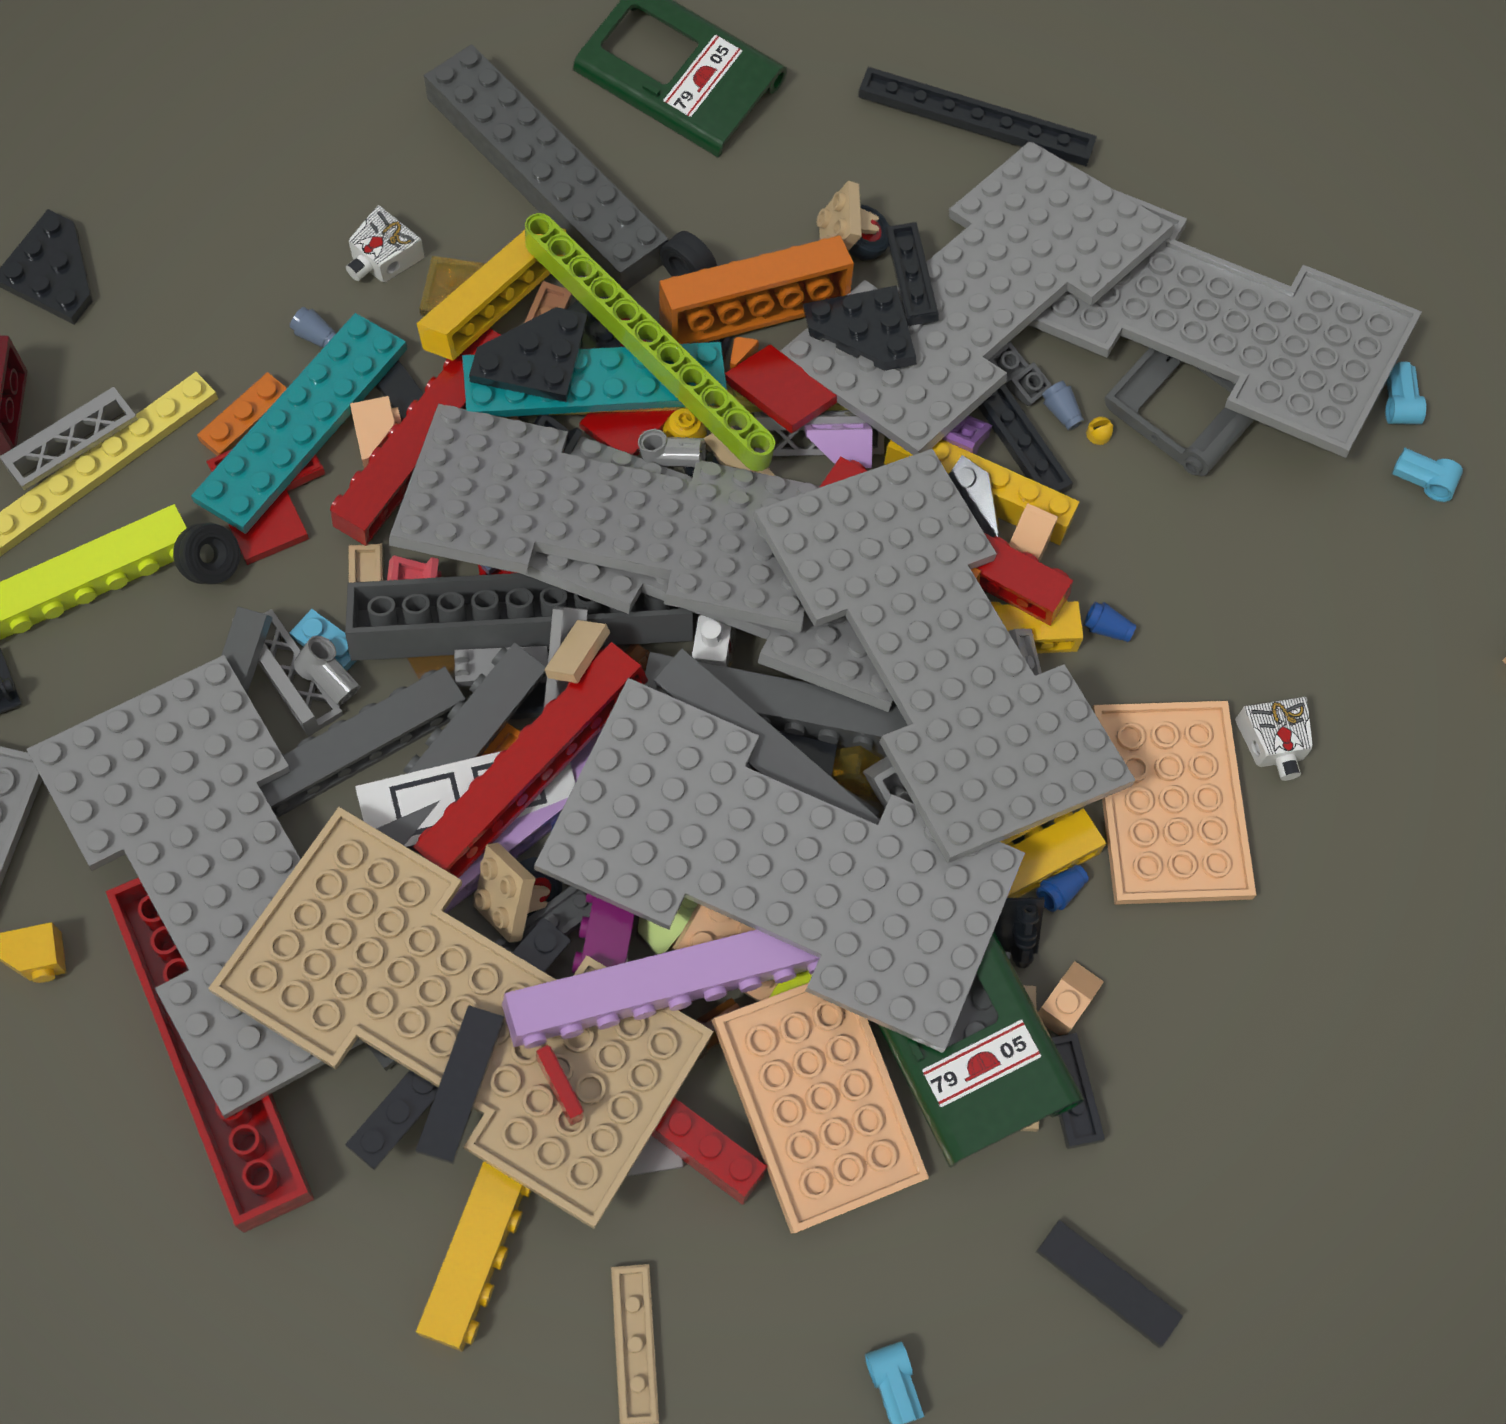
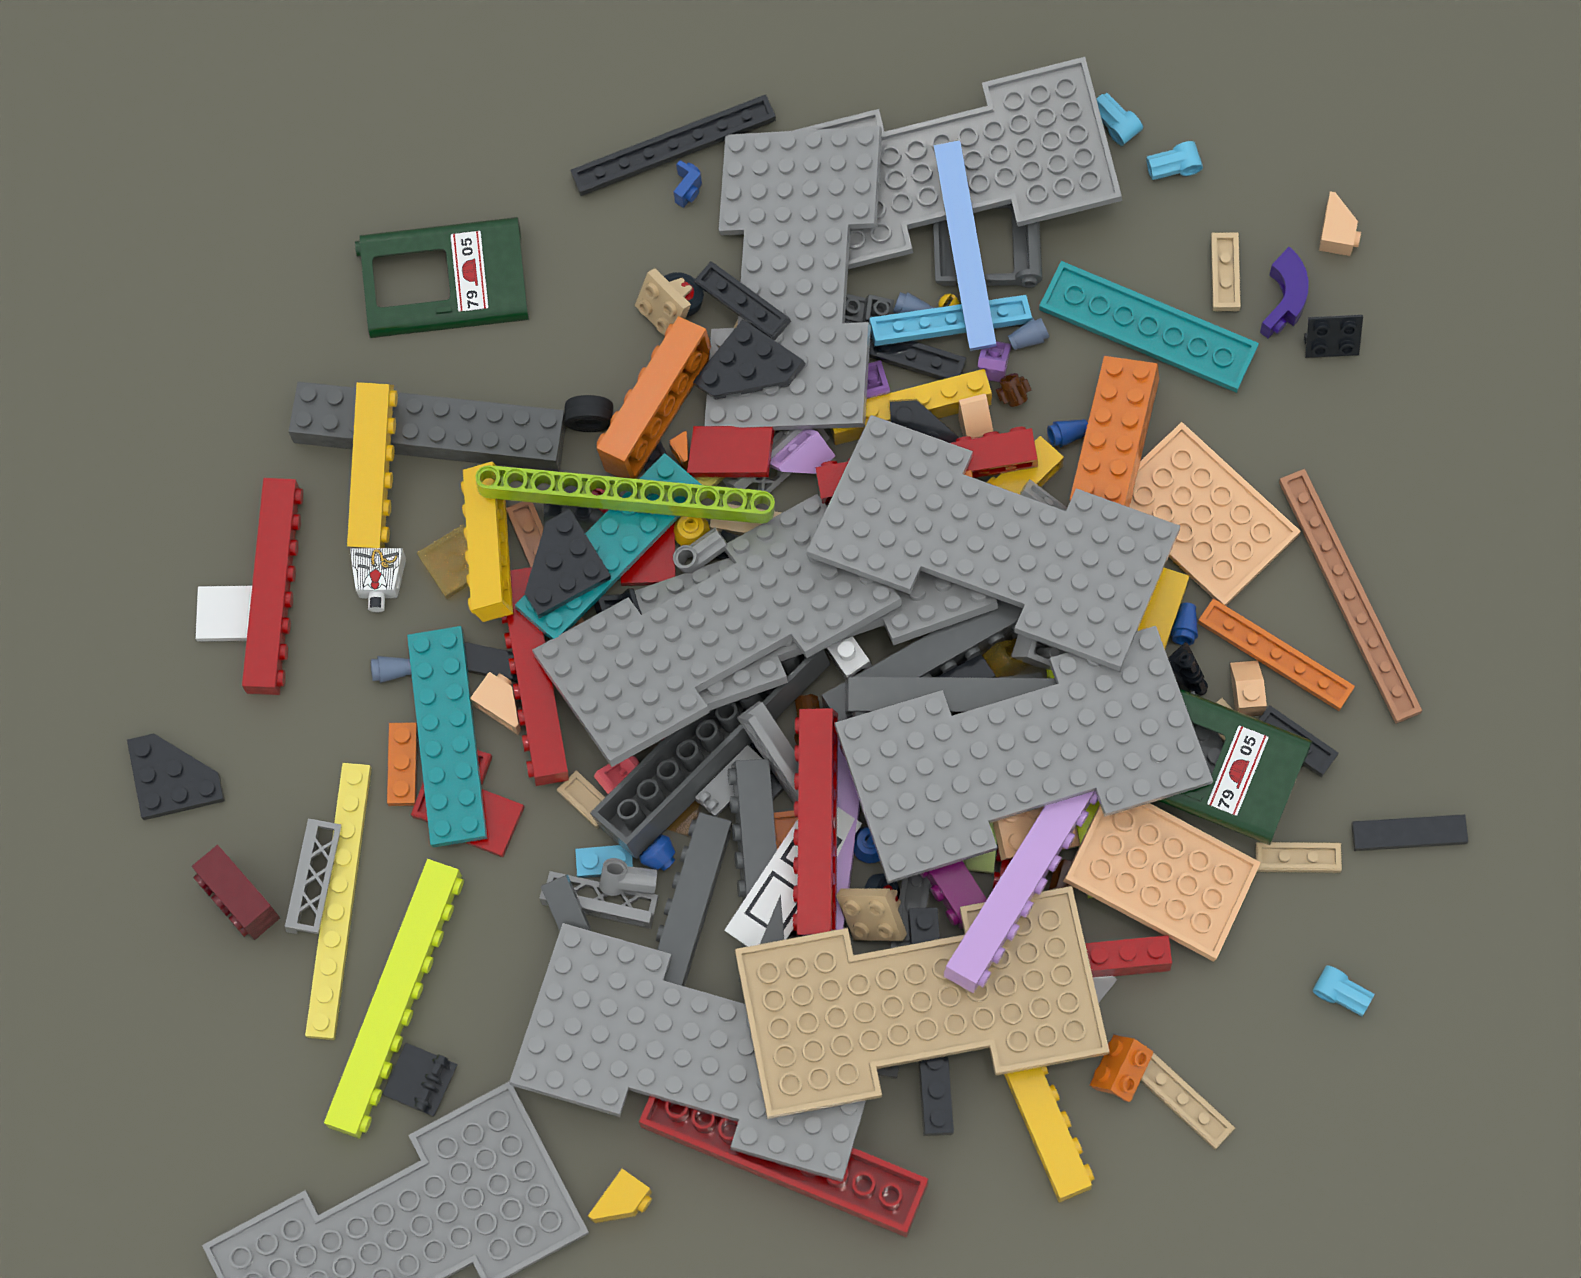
camera: 30 degrees left, 5 degrees up
(187, 553) = (468, 878): black tyre -> none
(231, 179) = (223, 613): none -> white tile
(286, 187) = (271, 586): none -> red brick
(376, 674) = (659, 854): none -> blue cone
(460, 149) = (371, 465): none -> yellow brick
(460, 1085) = (962, 1040): black tile -> none
(560, 1085) = (1019, 991): red tile -> none
(577, 651) = (783, 732): tan tile -> none
(603, 1257) = (1122, 1068): none -> orange bracket
(959, 155) = (689, 186): none -> blue bracket
(973, 1208) = (1298, 857): none -> tan tile
(1088, 440) = (944, 321): none -> medium azure plate
(1091, 545) = (1013, 389): none -> reddish brown gear
(1096, 507) = (995, 360): none -> medium lavender slope
(1127, 993) = (1276, 654): none -> orange plate
(1151, 511) = (1029, 334): none -> sand blue cone
(1158, 384) = (965, 246): none -> light blue tile
(1158, 654) = (1117, 429): none -> orange brick
(1251, 1003) = (1350, 596): none -> nougat plate
(1273, 595) = (1148, 326): none -> teal plate
(1277, 734) = (1229, 417): torso -> none
(1391, 605) = (1225, 271): none -> tan plate
(1450, 742) = (1333, 336): none -> black hinge
(1454, 658) = (1293, 281): none -> dark purple arch

